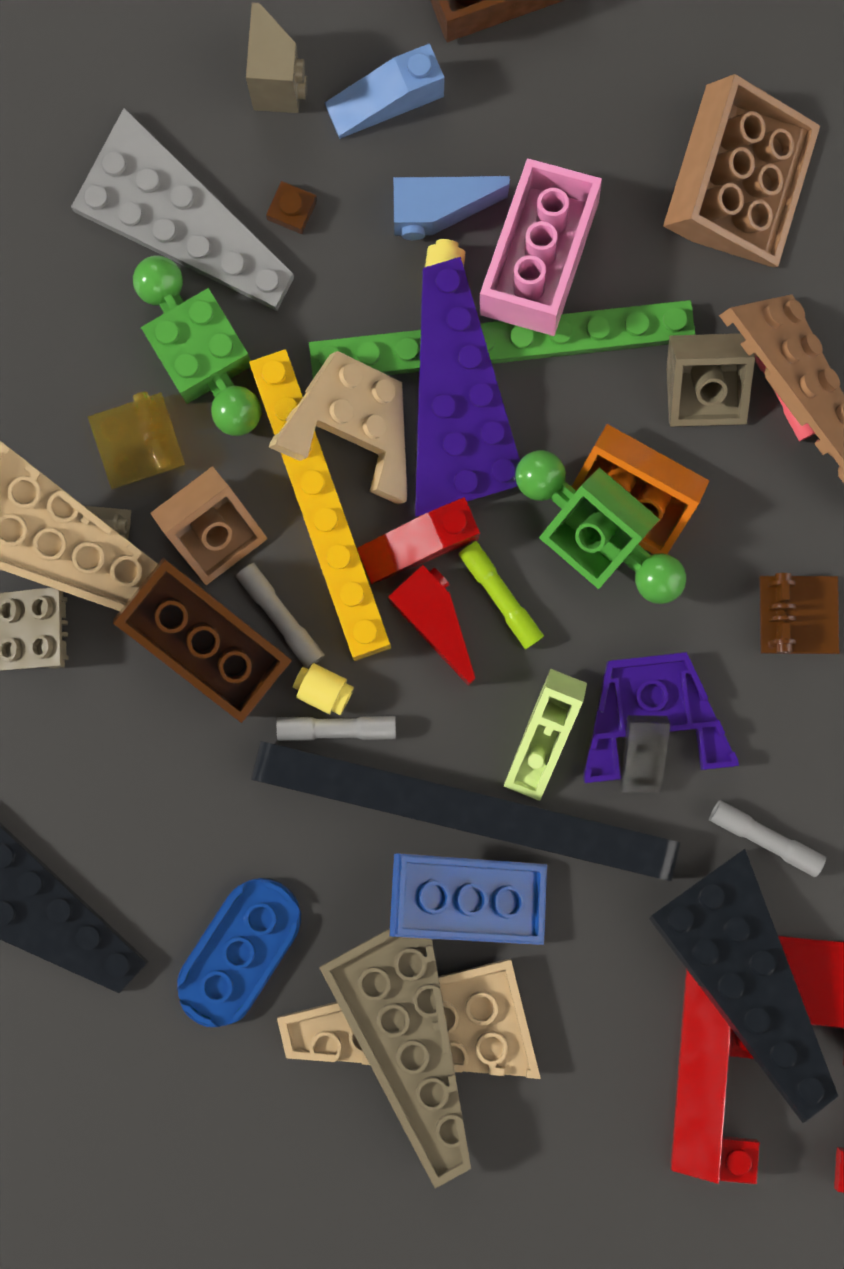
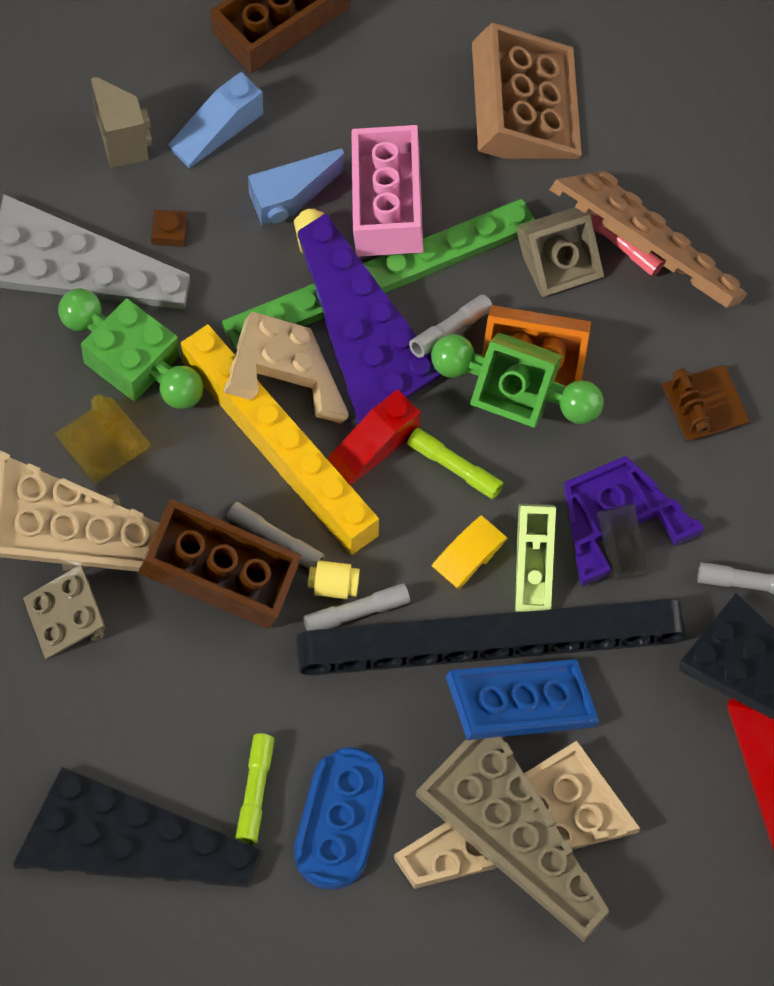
camera: 20 degrees left, 20 degrees down
(151, 913) = (251, 810): none -> lime piece
(208, 525) = (190, 475): medium nougat slope -> none
(432, 614) = (403, 493): red slope -> none
(478, 704) = (468, 551): none -> yellow slope
(574, 426) = (465, 316): none -> light grey piece

